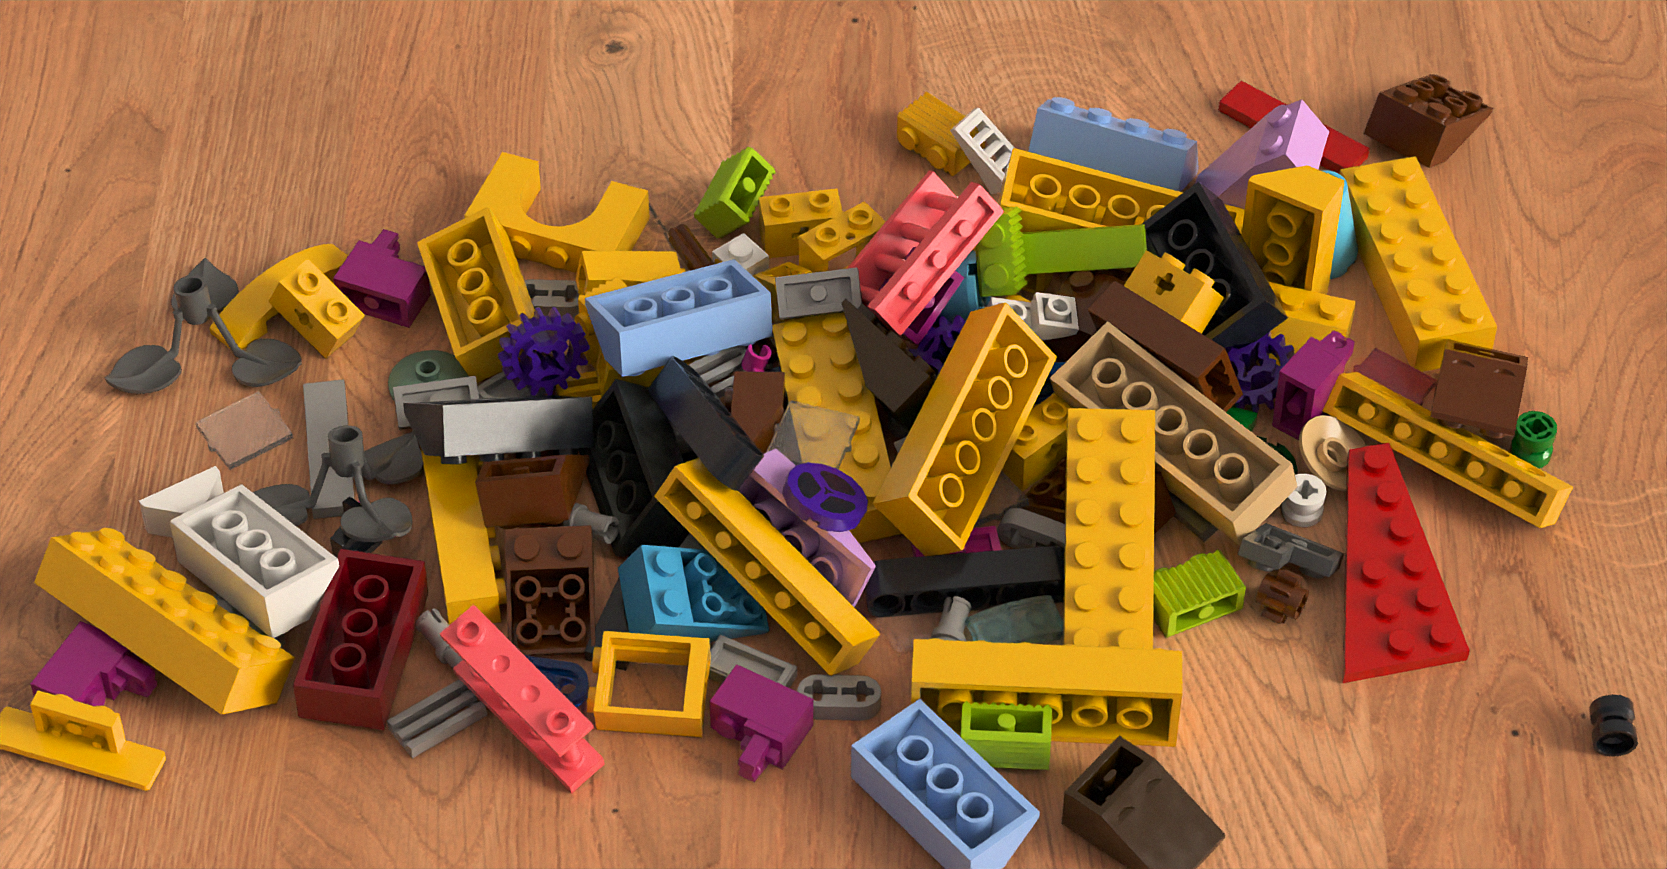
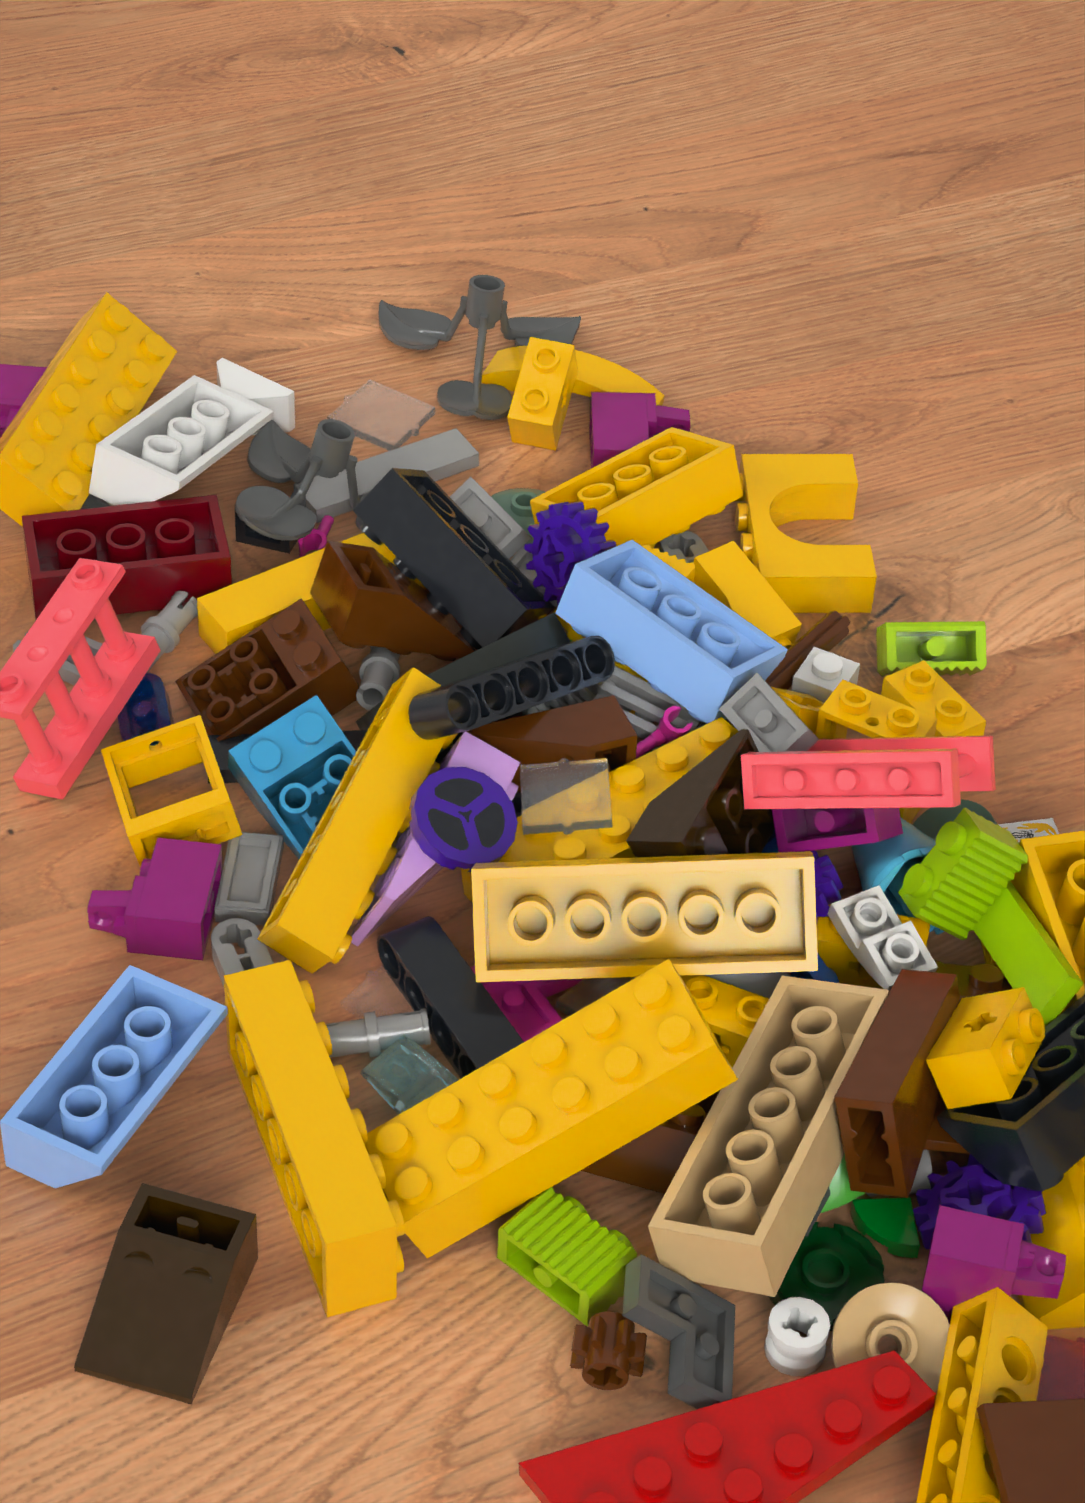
camera: 65 degrees right, 5 degrees down
(1009, 734) = (231, 1119): lime brick -> none

